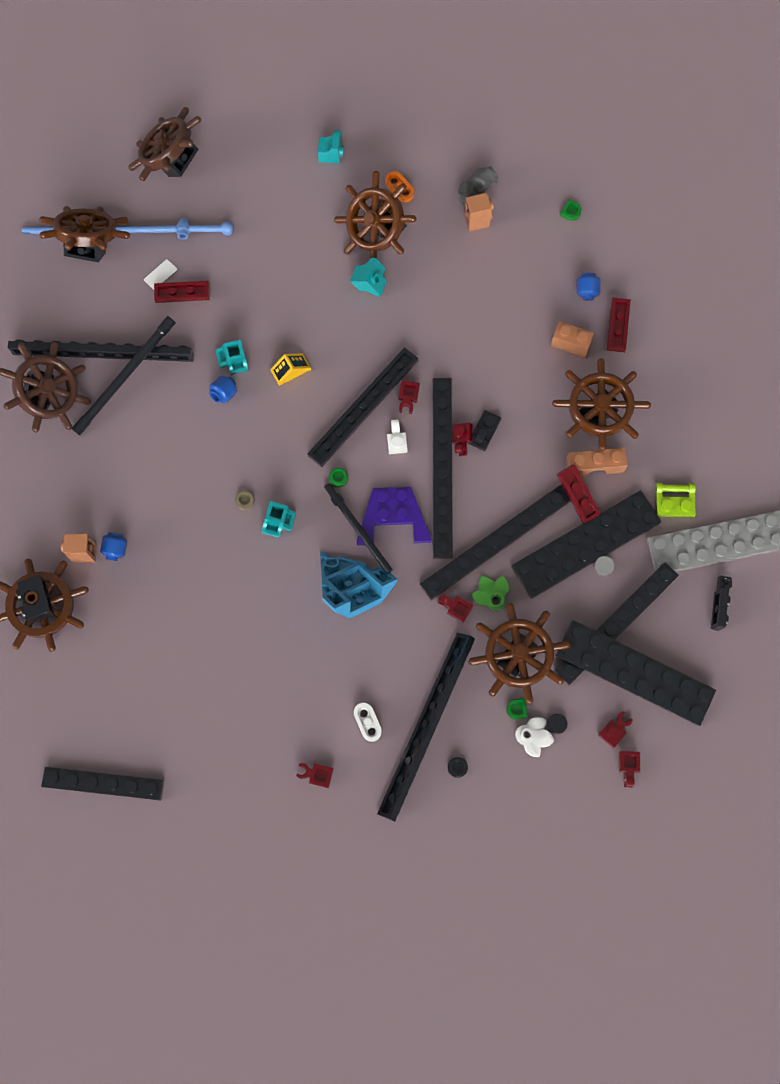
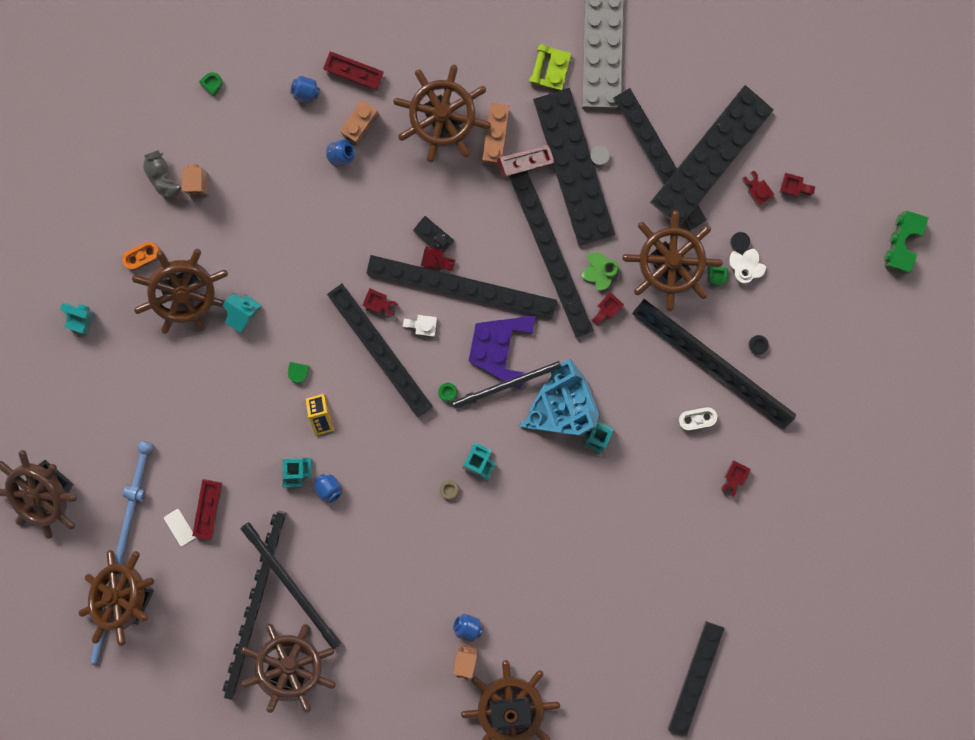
camera: 80 degrees left, 15 degrees up
(325, 340) = (297, 372): none -> green tile
(328, 625) = (598, 437): none -> teal brick
(538, 328) = (340, 153): none -> blue head
(622, 896) = (899, 257): none -> green arch
(720, 603) = (663, 54): black hinge -> none

